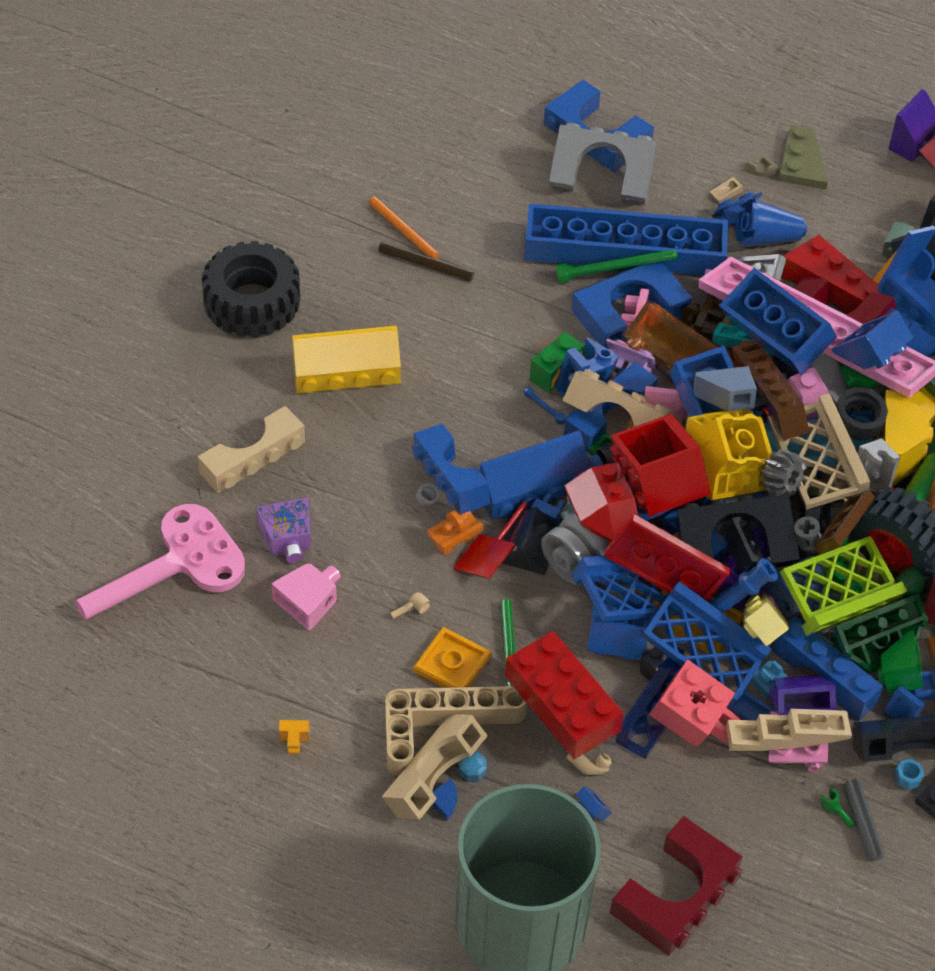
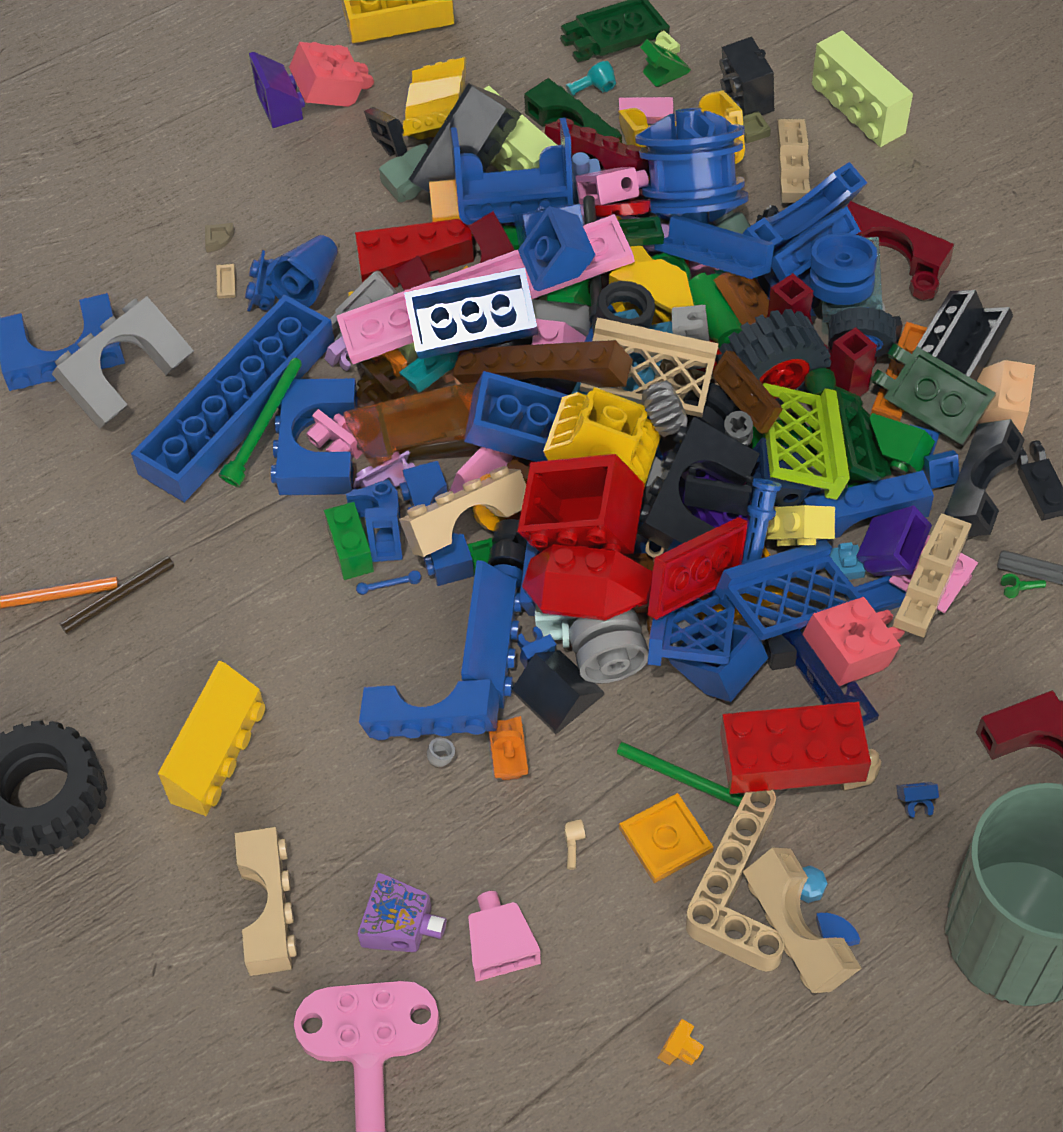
camera: 55 degrees left, 5 degrees up
(486, 552) = (555, 734): red piece -> none
(726, 388) = (540, 395): sand blue slope -> none
(802, 159) = (234, 199): olive wing -> none
(908, 774) = (1014, 506): dark azure tile -> none

